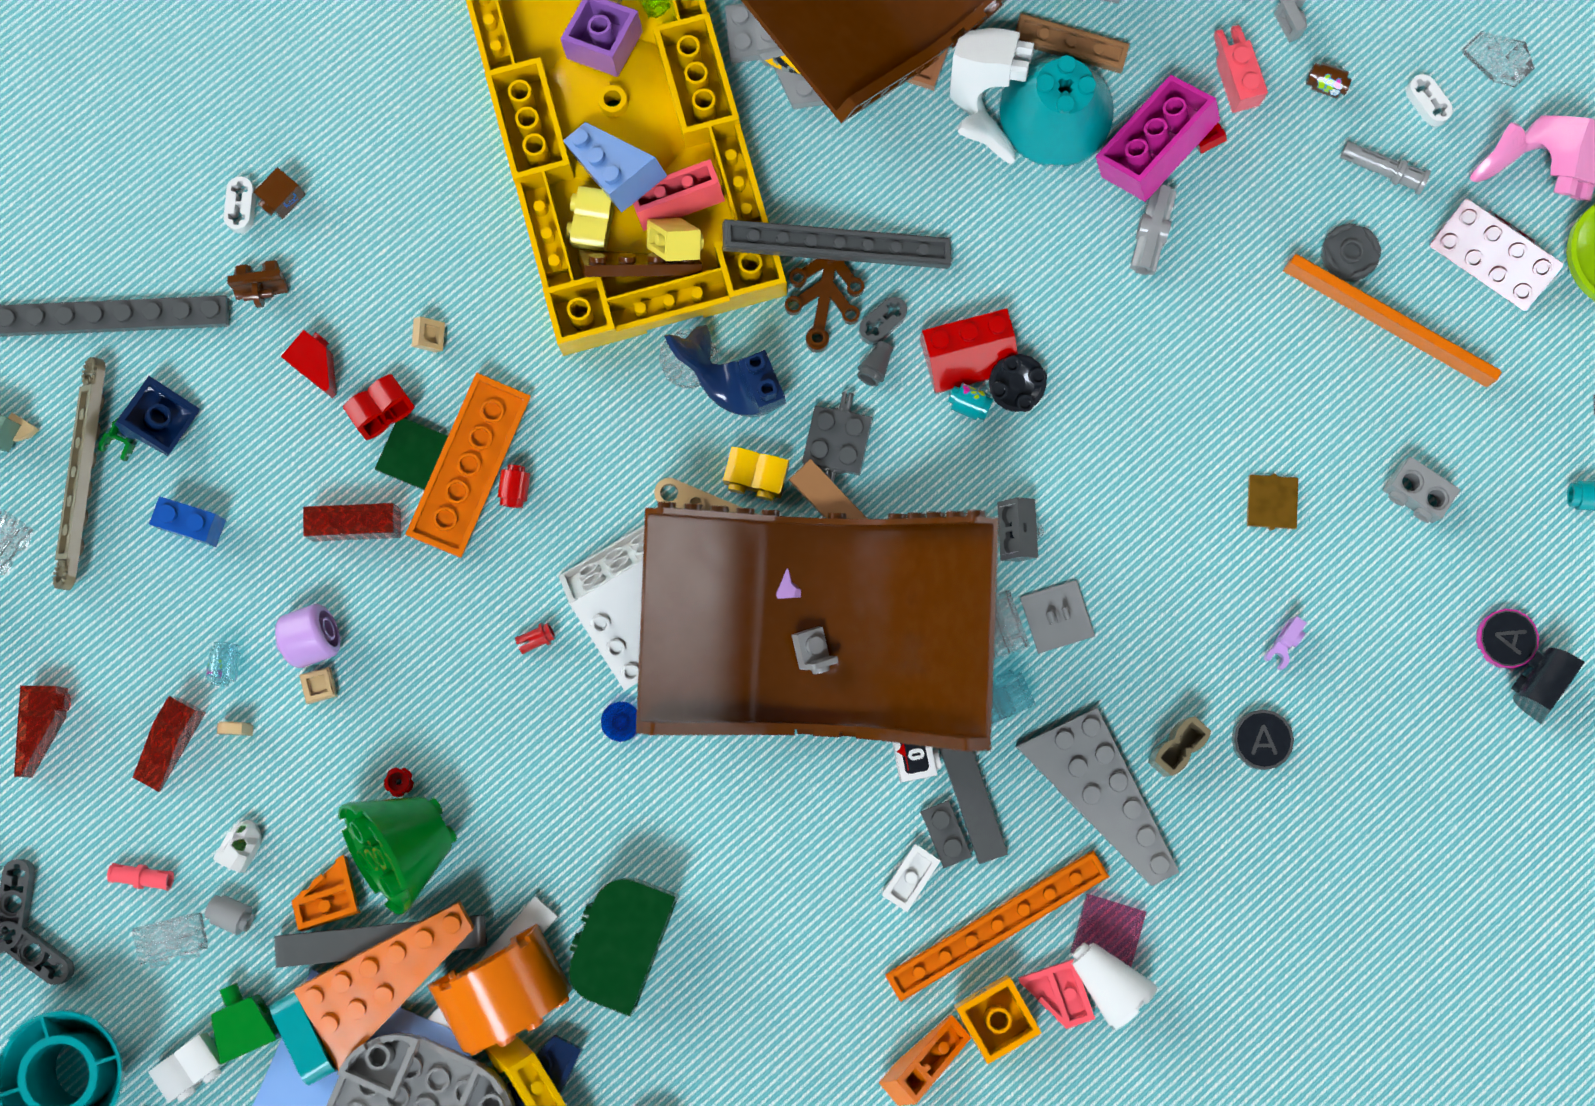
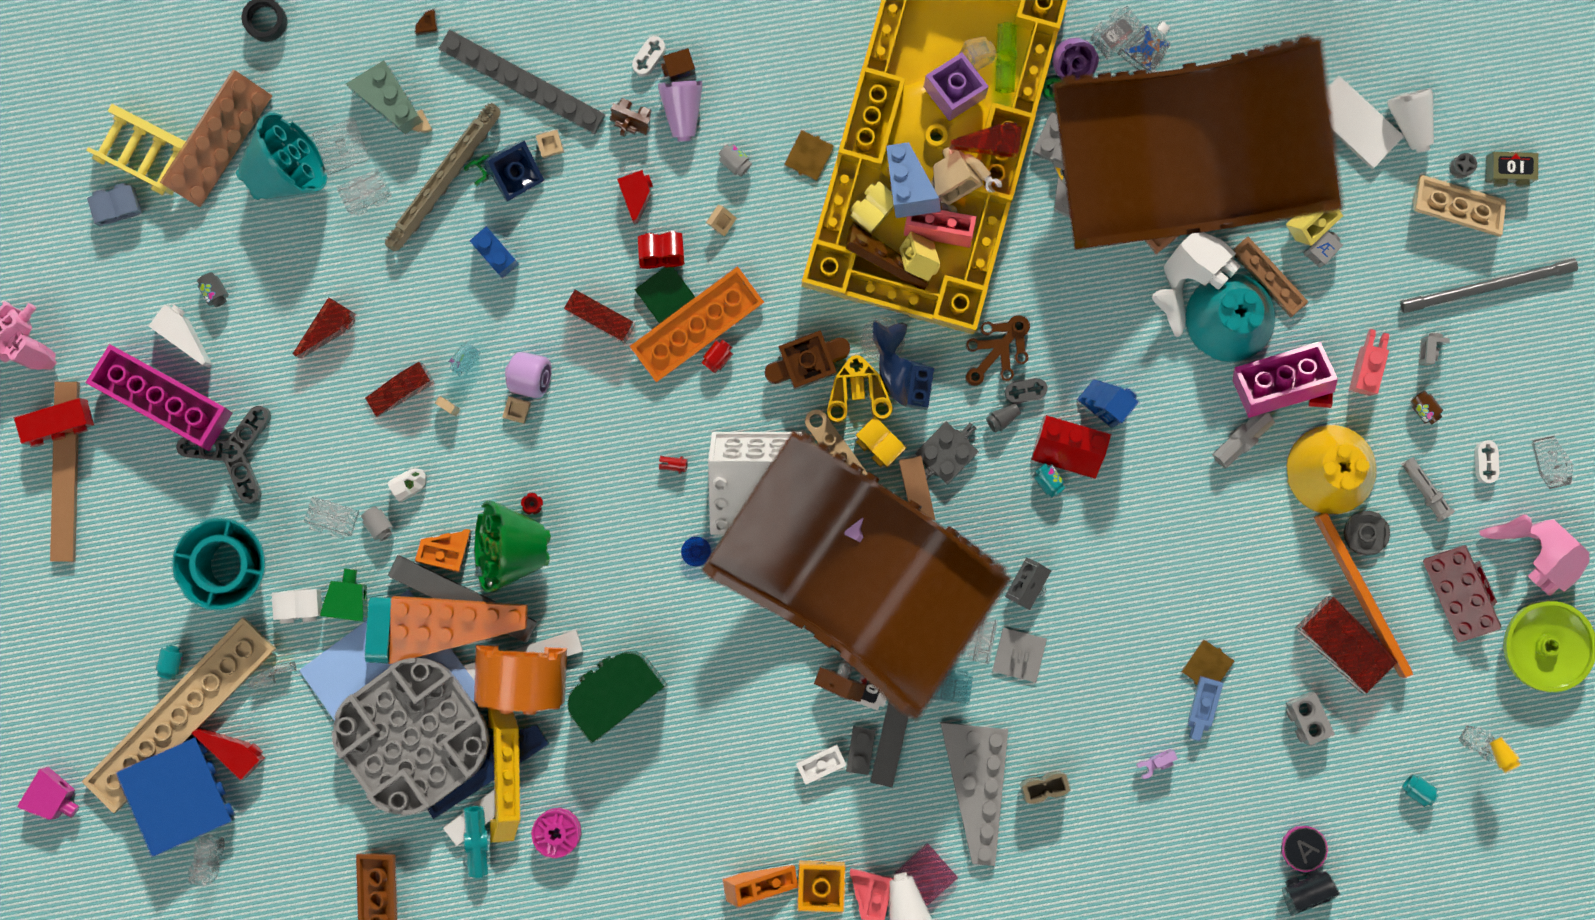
camera: 30 degrees right, 5 degrees up
(140, 876) = (334, 465): coral pin -> none
(182, 365) = (549, 144): none -> tan plate
(308, 235) = (681, 107): none -> lavender cone
(404, 260) = (734, 159): none -> light grey brick
(485, 208) = (809, 155): none -> pearl gold piece
(618, 430) = (807, 360): none -> reddish brown brick
(664, 125) = (959, 176): none -> tan torso
(678, 65) = (997, 140): none -> clear red slope
(715, 416) = (876, 388): none -> yellow connector
(813, 651) = (846, 582): light grey bracket -> none
(836, 244) = (1025, 323): dark grey tile -> none
(875, 768) = (840, 682): none -> reddish brown piece
(982, 274) = (1108, 402): none -> blue wedge
(996, 925) = (857, 827): orange tile -> none
(1017, 382) = (1088, 486): black dish -> none
(1262, 739) = (1102, 815): black tile -> none
(1269, 208) = (1331, 469): none -> yellow cone
(1297, 548) = (1204, 706): none -> medium blue hinge
(1408, 384) = (1346, 644): none -> clear red brick

